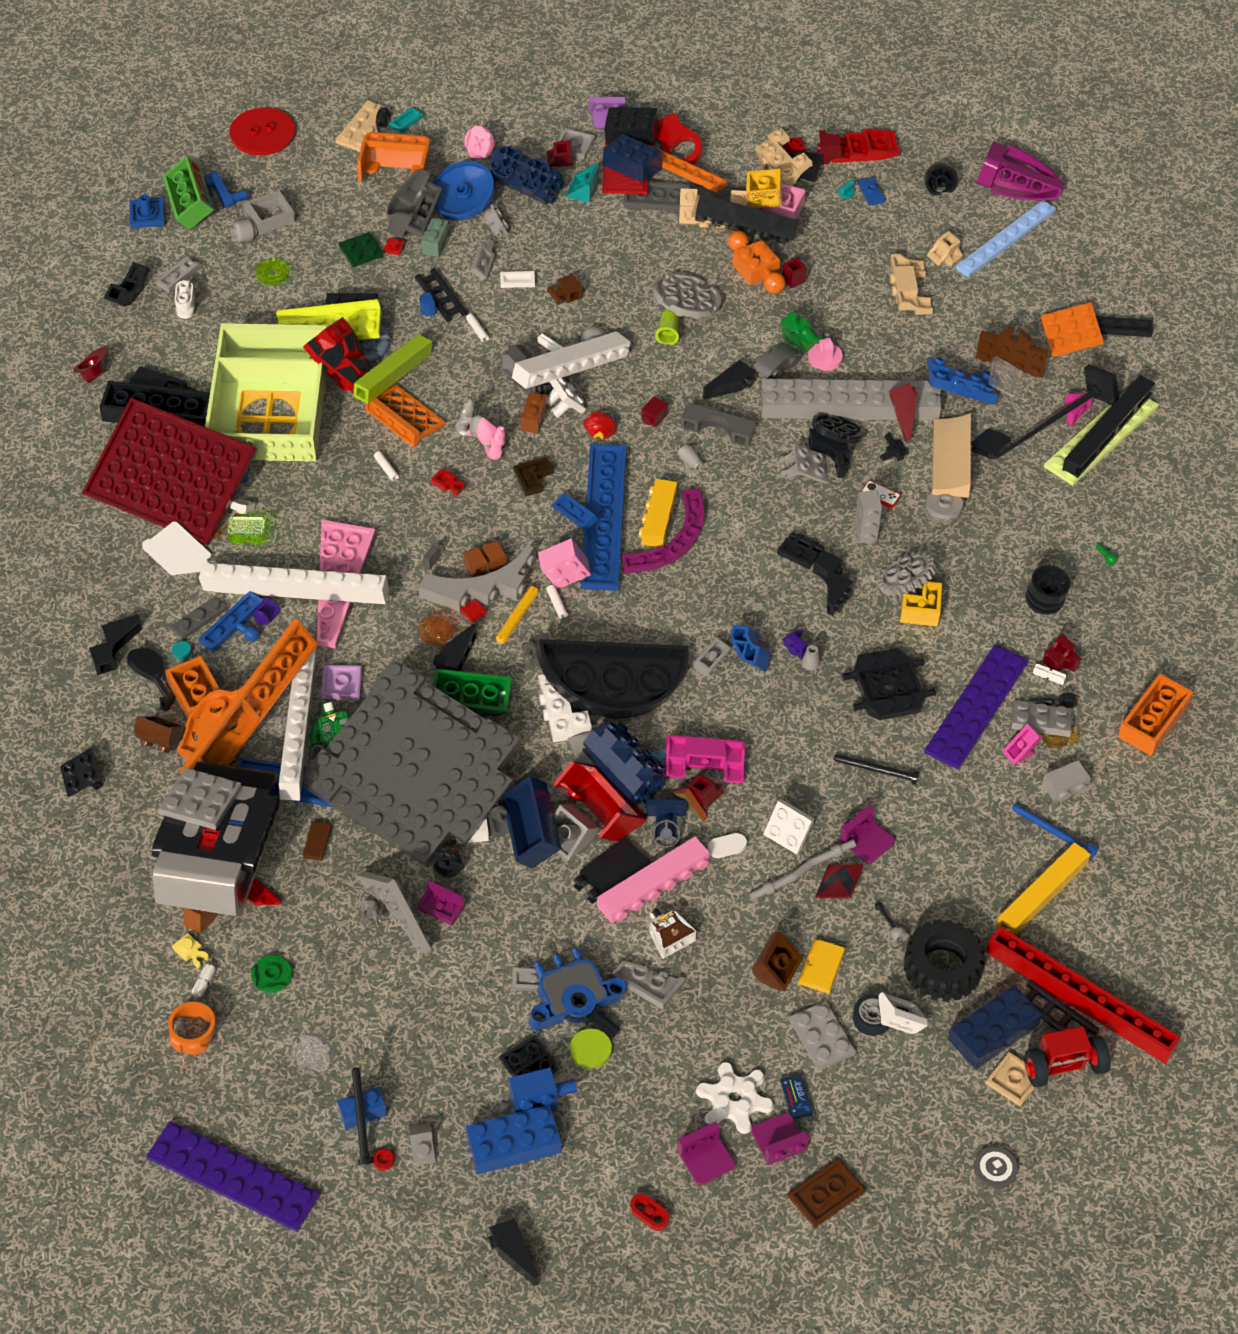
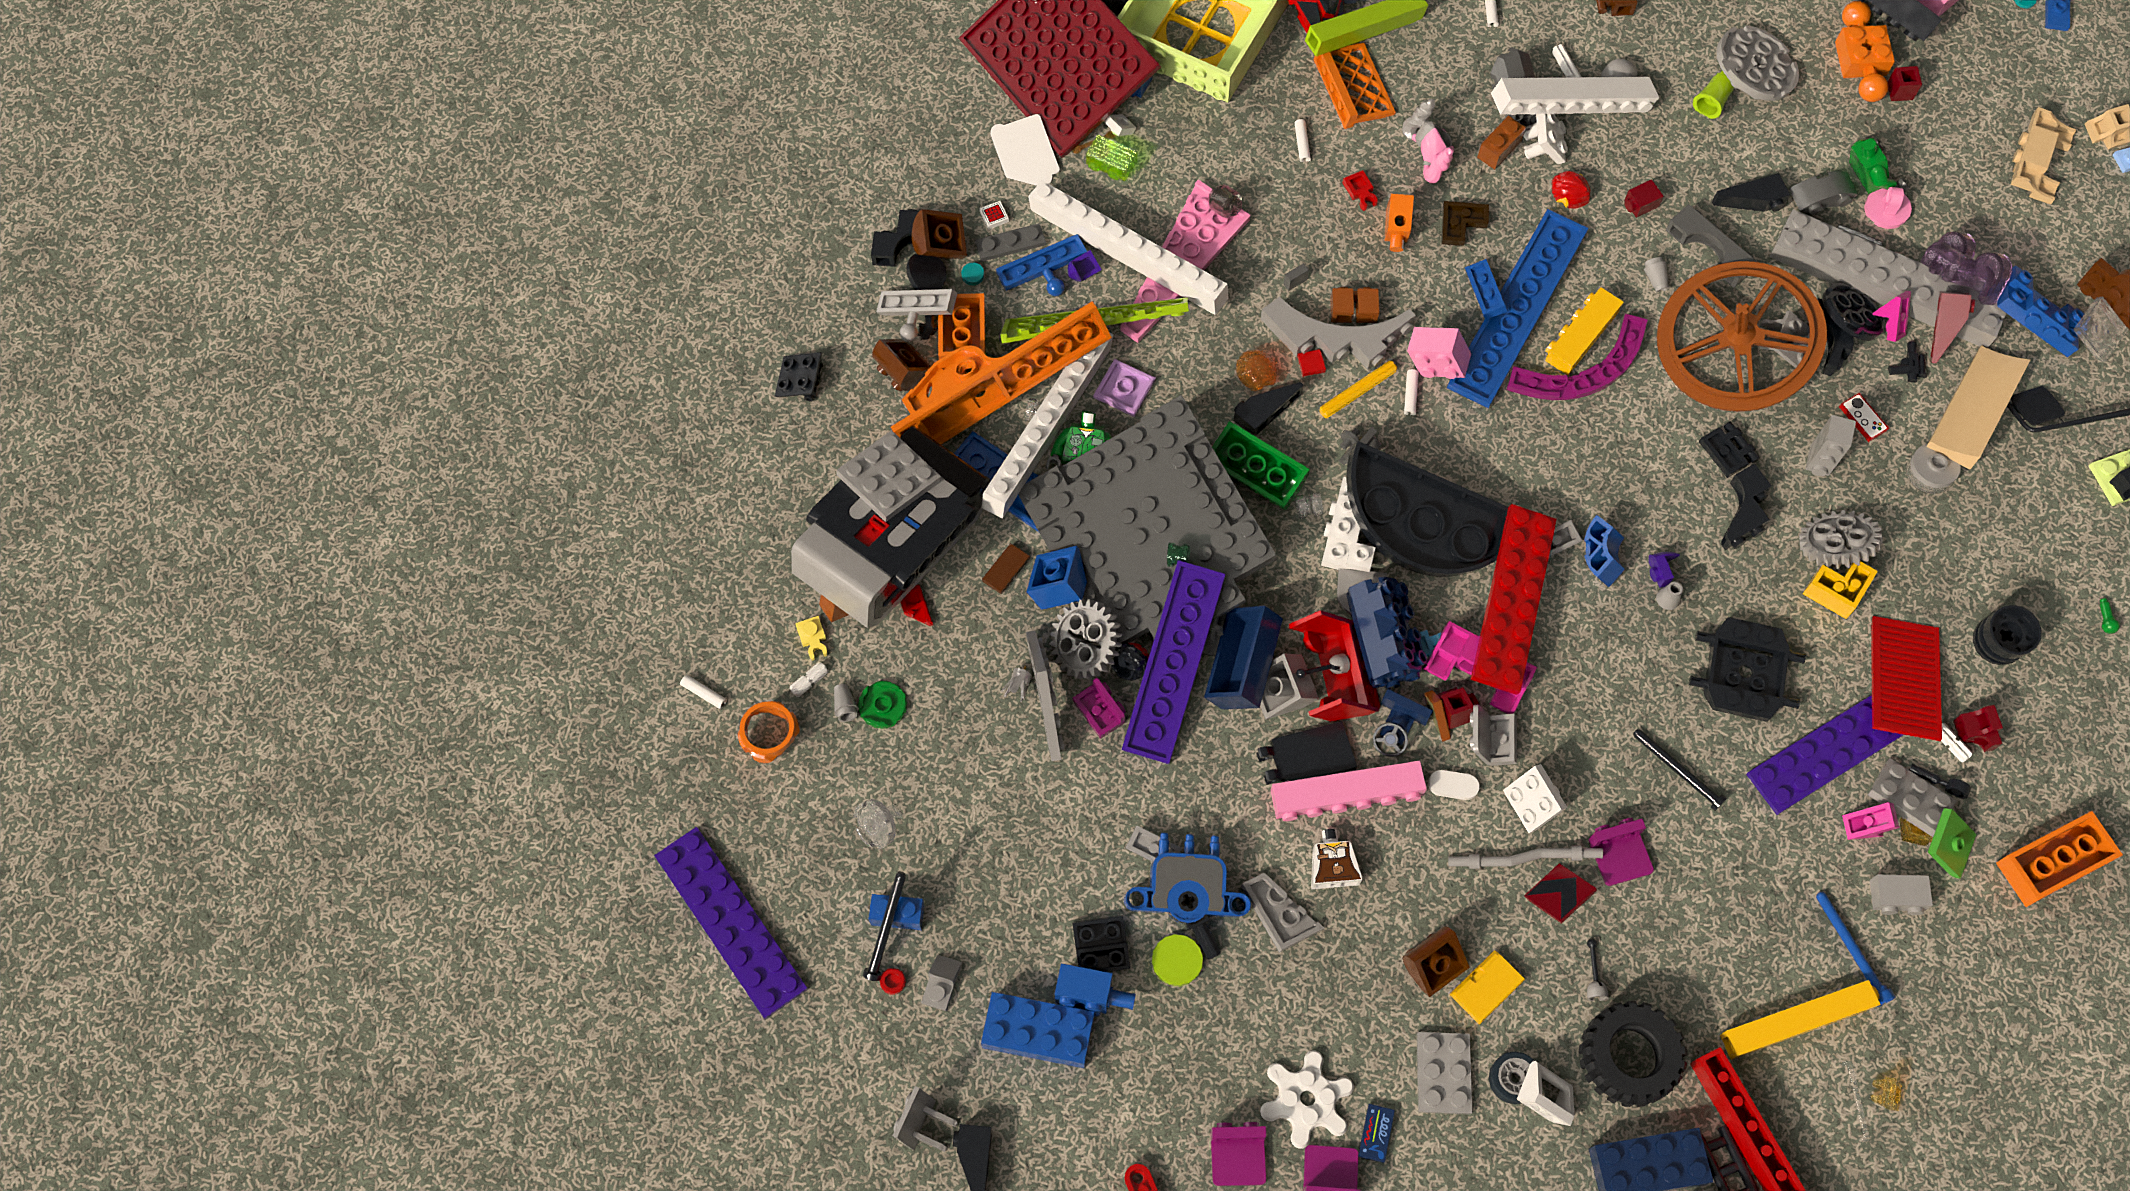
camera: 30 degrees right, 15 degrees up
(123, 1025) = (703, 691): none -> white piece
(142, 629) = (939, 234): none -> reddish brown brick
(149, 684) = (914, 304): none -> light grey plate
(176, 604) = (994, 215): none -> tile
(242, 985) = (844, 703): none -> light grey cone
(251, 664) = (1031, 326): none -> lime wing
(352, 525) = (1225, 201): none -> clear smoke head
(362, 827) = (1057, 578): none -> blue slope
(406, 839) = (1094, 618): none -> light grey gear
(448, 767) = (1176, 553): none -> clear green wheel
(451, 1242) = (908, 1126): none -> light grey plate
(481, 845) = (1173, 662): none -> dark purple plate
(482, 482) = (1398, 207): none -> orange torso
(523, 704) = (1308, 505): none -> clear wheel
(598, 802) = (1337, 664): none -> hinge
(704, 702) = (1513, 599): none -> red plate
(739, 800) = (1494, 737): none -> light grey bracket
(770, 471) = (1740, 335): none -> dark orange wheel
(867, 416) = (1897, 312): none -> dark pink slope
(887, 366) = (1955, 260): none -> clear purple piece
(997, 645) = (1906, 678): none -> red window
(1082, 734) = (1952, 843): none -> bright green plate
(1127, 908) = (1891, 1093): none -> clear yellow tile

